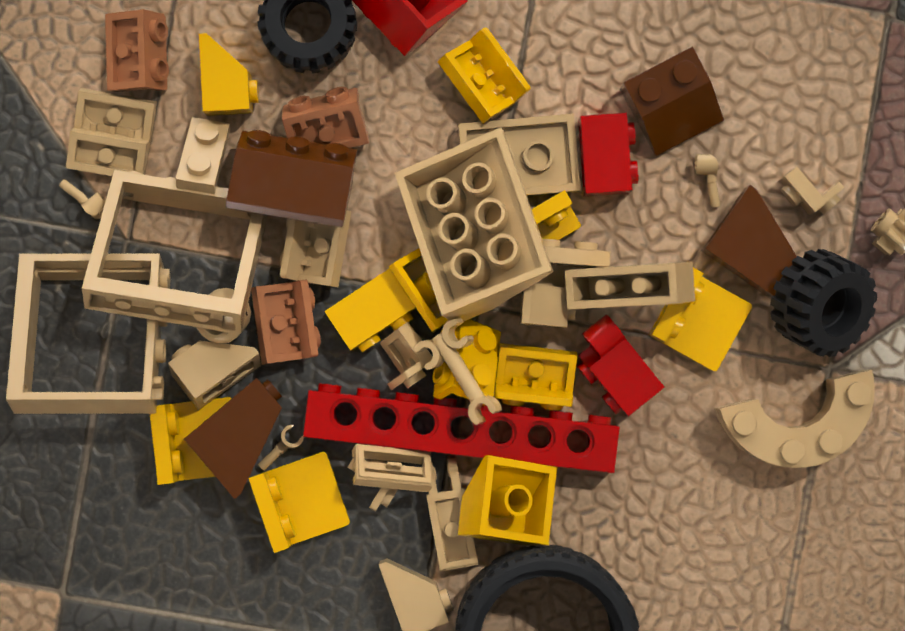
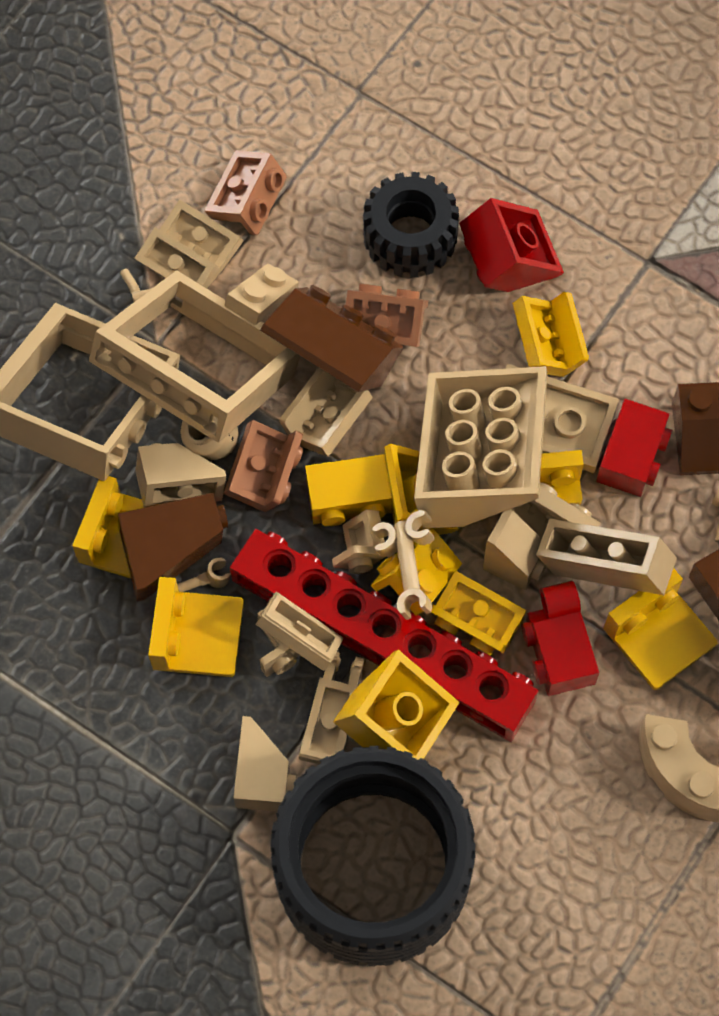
camera: 20 degrees right, 20 degrees down
(224, 81) = (311, 245): yellow slope -> none

